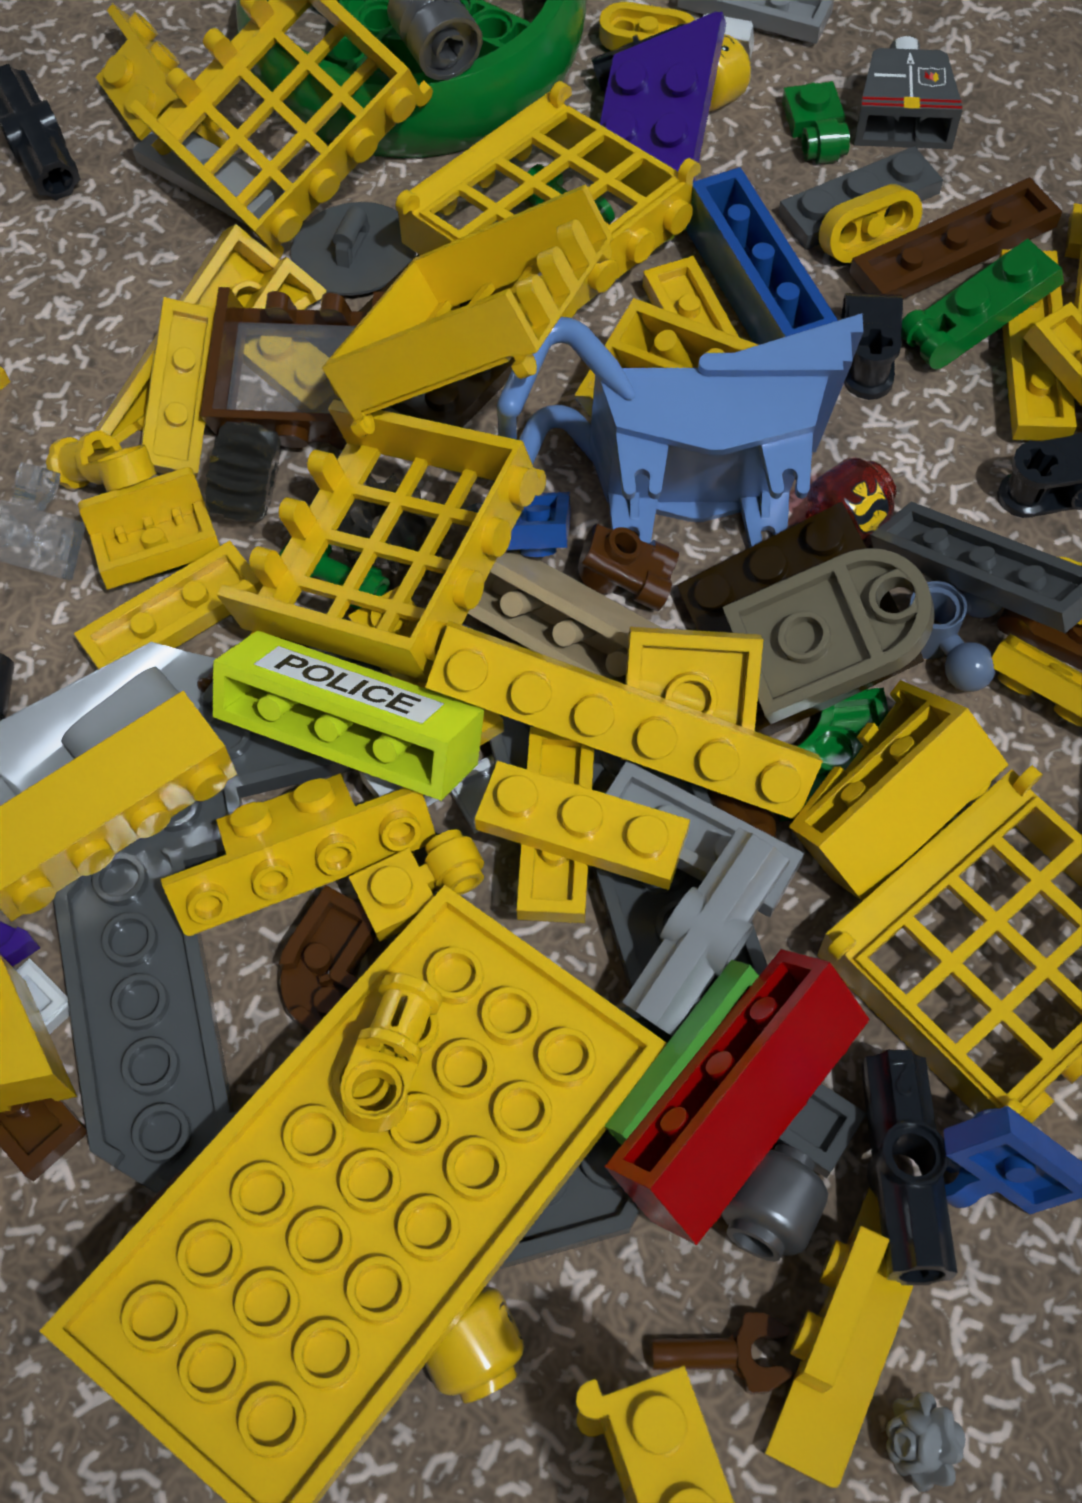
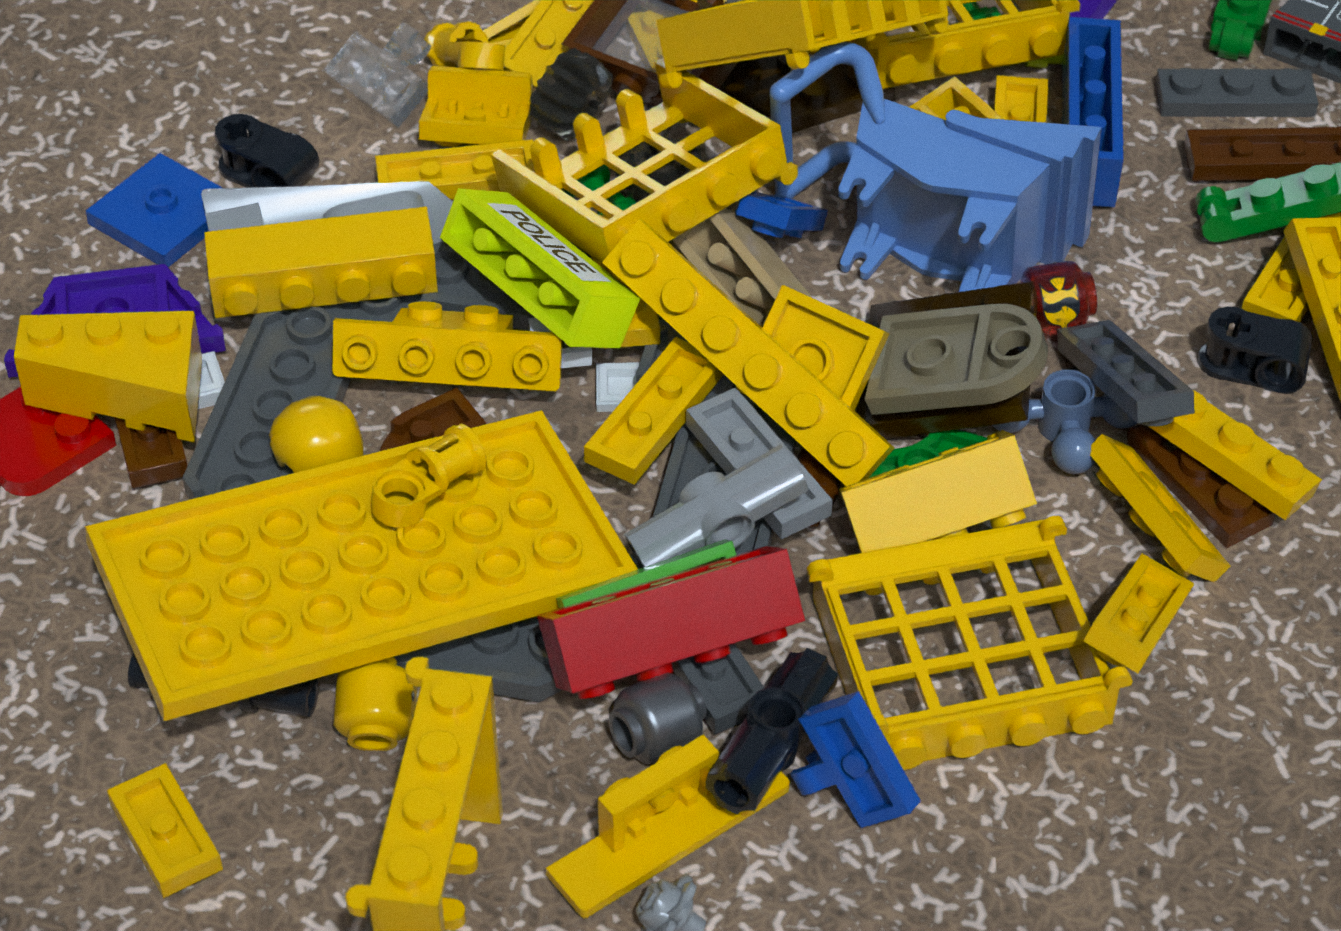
camera: 25 degrees right, 15 degrees down
(218, 1035) = (315, 434): none -> yellow hair
(399, 889) = (504, 399): yellow plate -> none
(582, 824) = (669, 409): yellow plate -> none
(622, 560) = (834, 270): reddish brown plate -> none
(728, 1353) = (559, 804): reddish brown bar -> none
(866, 222) = (1223, 106): yellow plate -> none
(874, 360) = (1162, 197): black piece -> none

